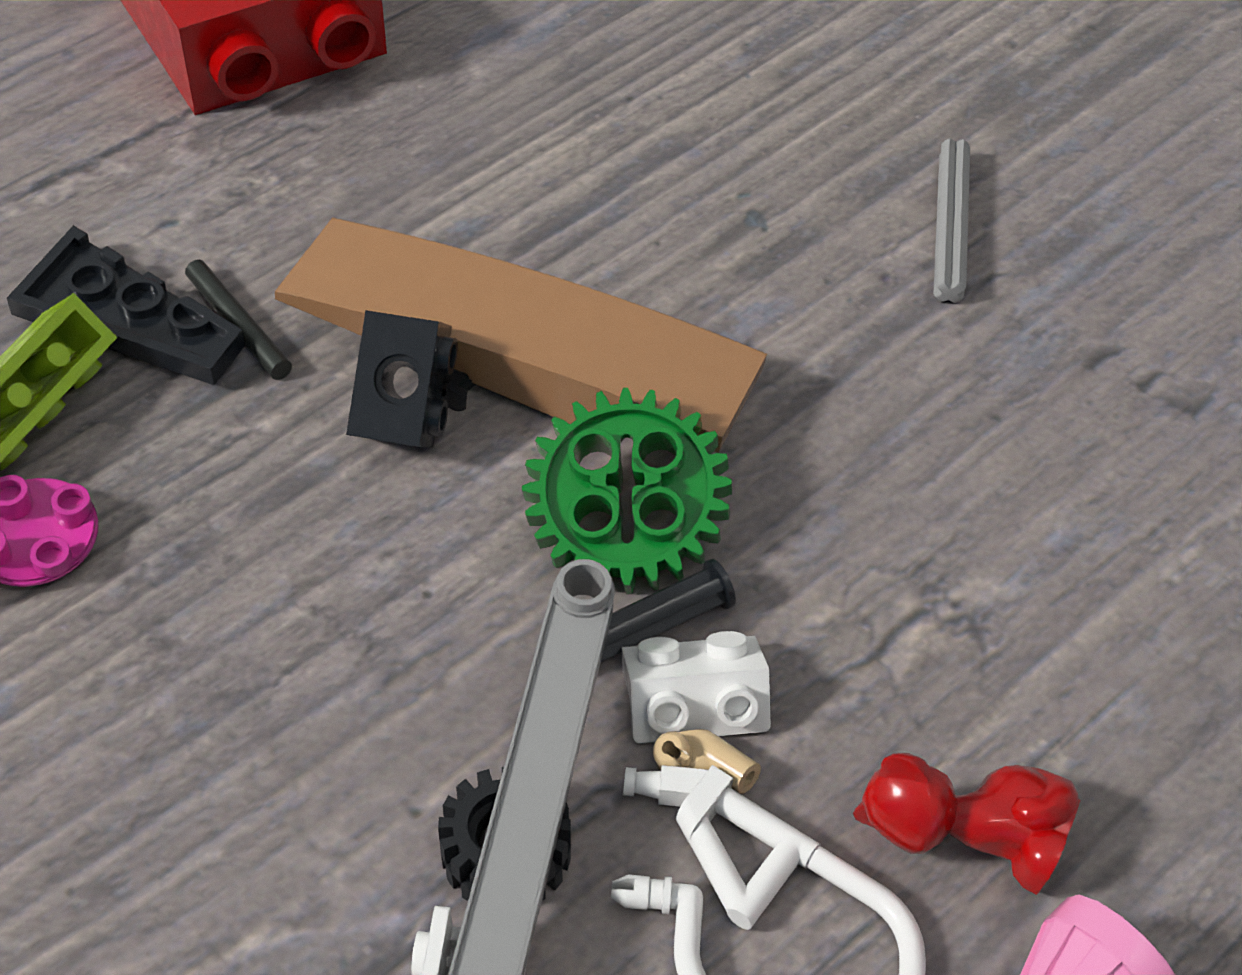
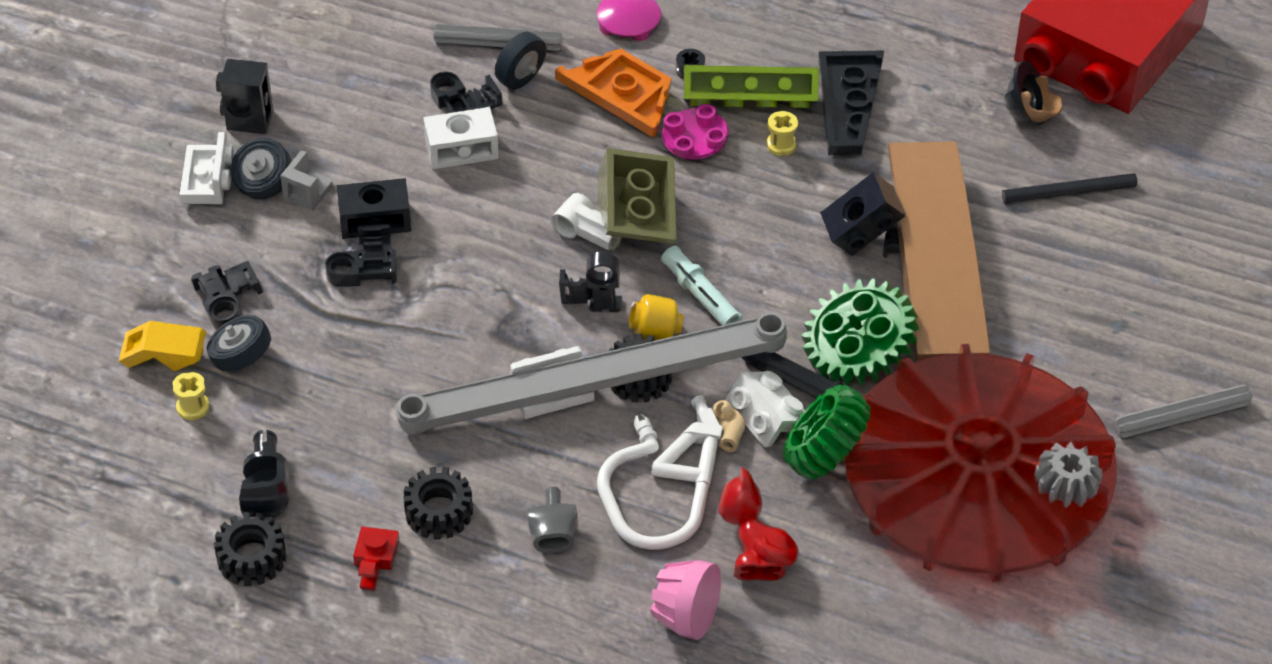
camera: 65 degrees right, 0 degrees up
(95, 783) = (581, 218): none -> white piece
(138, 663) = (637, 195): none -> olive slope
(145, 401) = (782, 138): none -> light yellow bush
(229, 308) = (877, 143): pearl dark grey bar -> none
(294, 802) = (597, 287): none -> black piece
(296, 675) = (678, 264): none -> light aqua pin
(305, 122) = (1030, 97): none -> black piece
(414, 763) = (655, 317): none -> yellow head
(480, 161) = (1069, 188): none -> black bar
(861, 610) = (826, 432): none -> green gear
(968, 465) = (957, 461): none -> clear red piece
(1110, 342) = (1068, 474): none -> light grey gear

